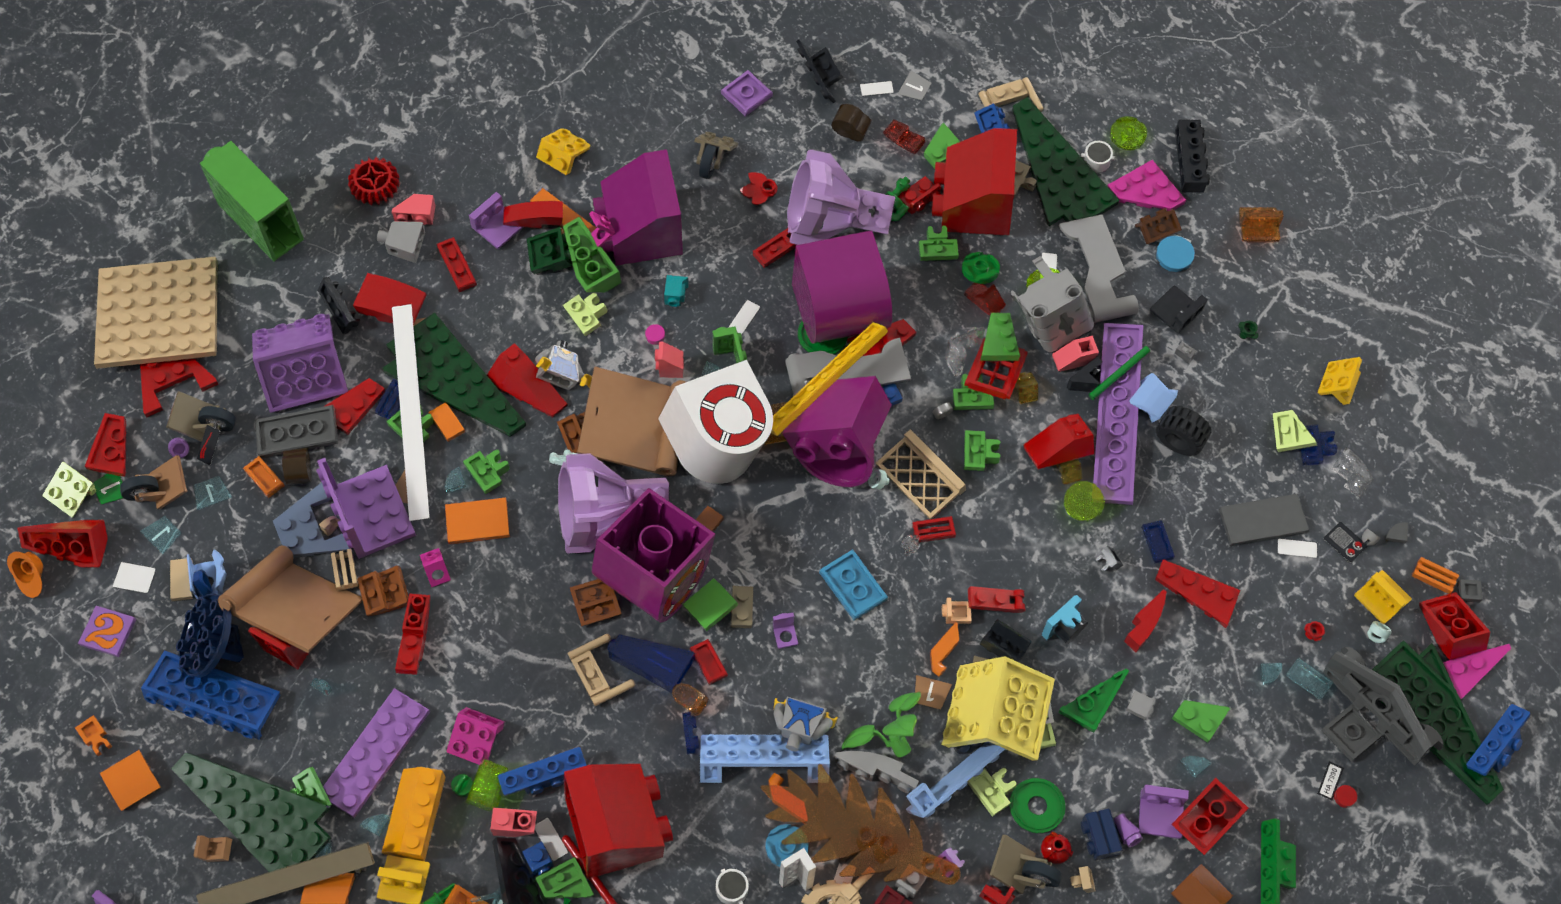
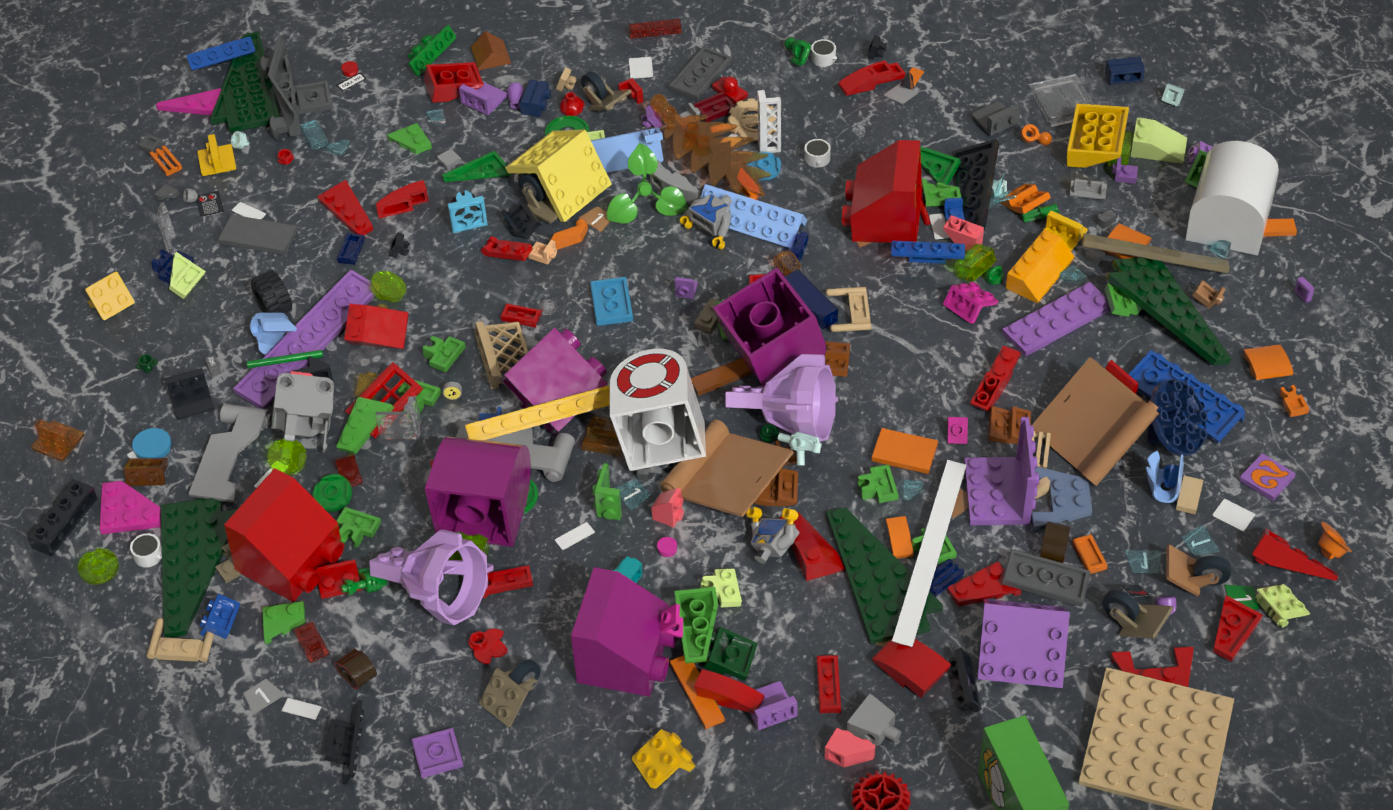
camera: 150 degrees left, 15 degrees down
(1455, 626) = (184, 124): red slope -> none

